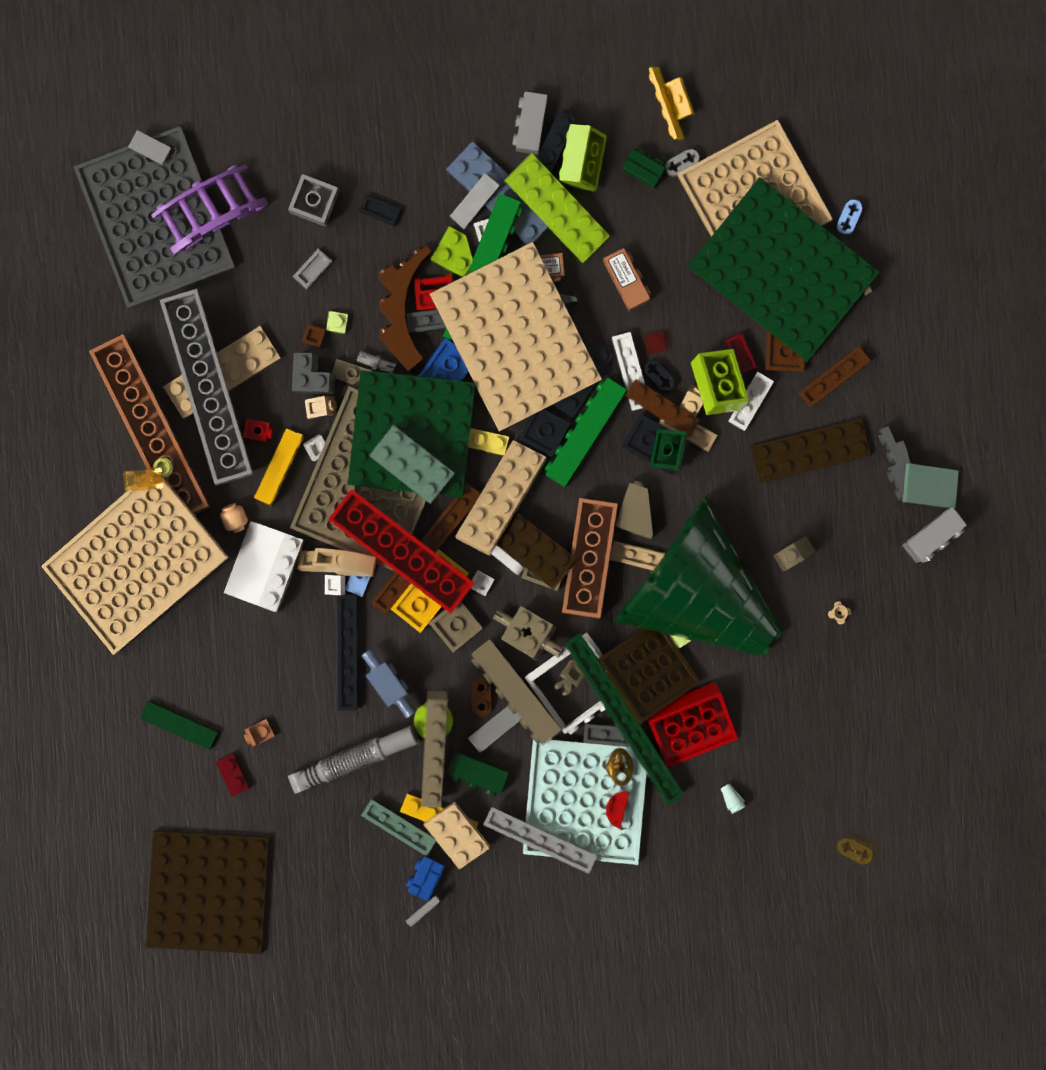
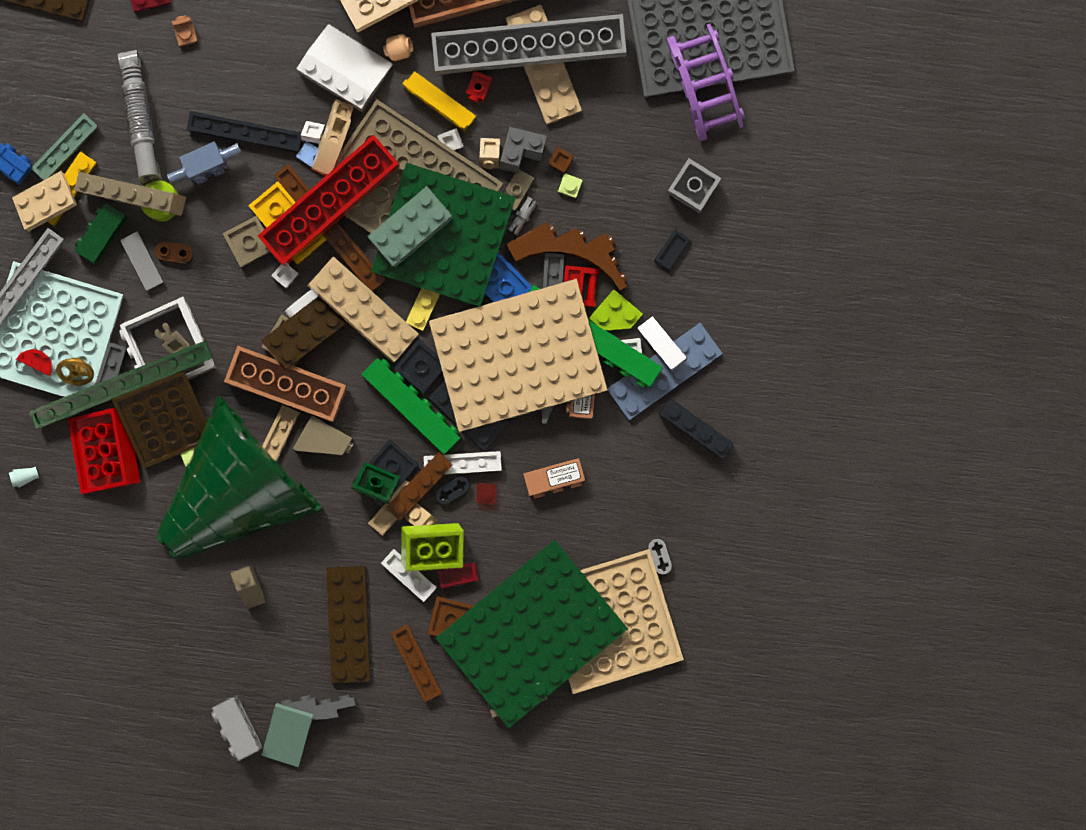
camera: 100 degrees right, 0 degrees up
(149, 147) = (778, 36): light grey tile -> none
(312, 269) = (627, 172): light grey tile -> none
(516, 693) = (170, 285): dark tan brick -> none
(527, 621) = (225, 322): dark tan brick -> none
(530, 122) = (729, 414): light grey brick -> none
(556, 208) = (637, 422): lime plate -> none
(582, 157) = (682, 457): lime brick -> none
(643, 168) = (662, 516): dark green brick -> none
(673, 99) = (723, 560): yellow bracket -> none
(844, 612) = (182, 624): tan plate -> none
(845, 215) = (575, 707): light blue beam -> none

